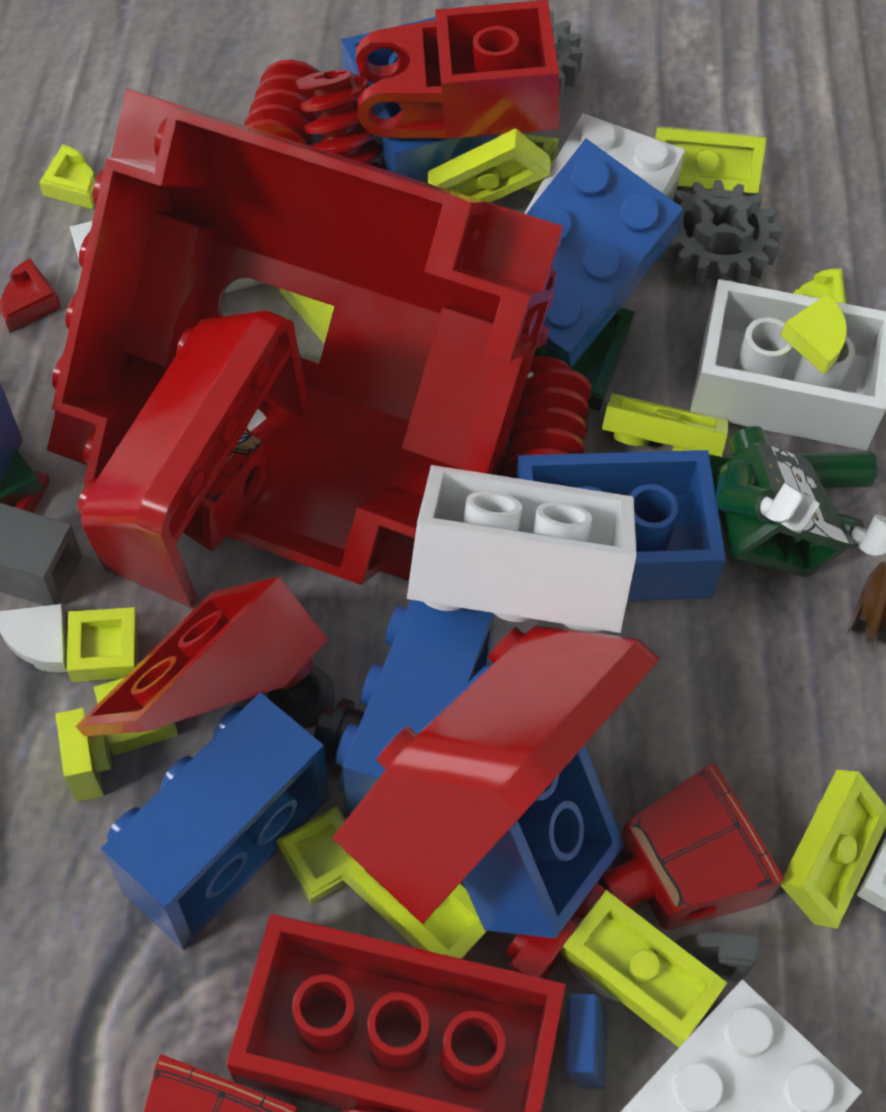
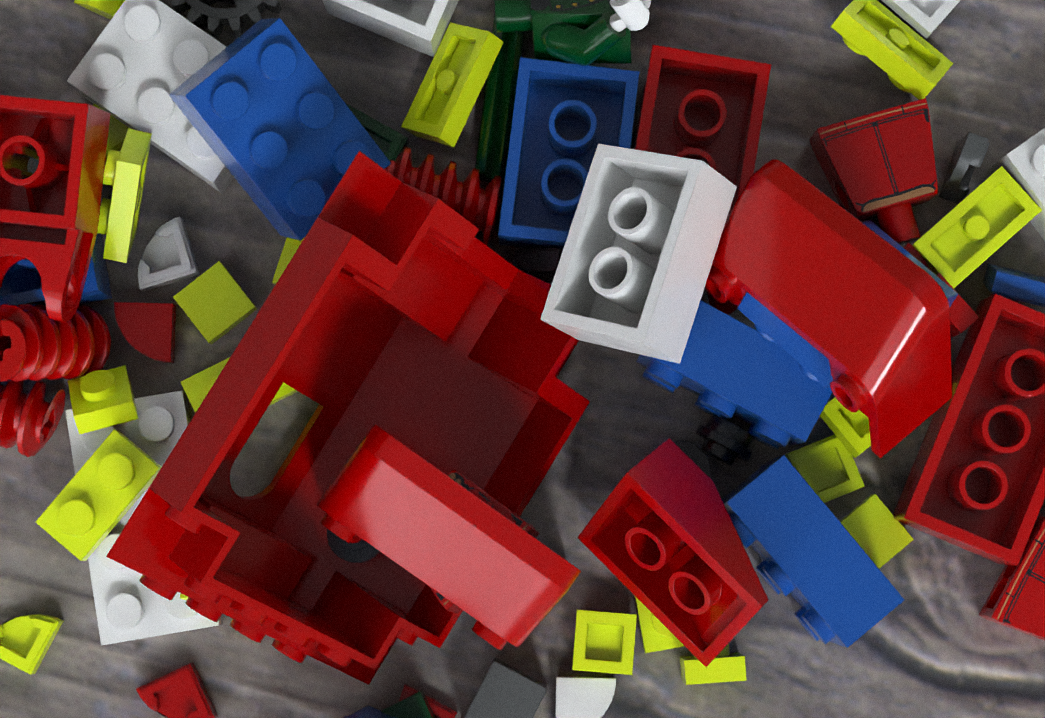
camera: 75 degrees left, 25 degrees up
(244, 910) = (876, 530): none -> neon yellow tile
(709, 645) = (704, 110): none -> red brick

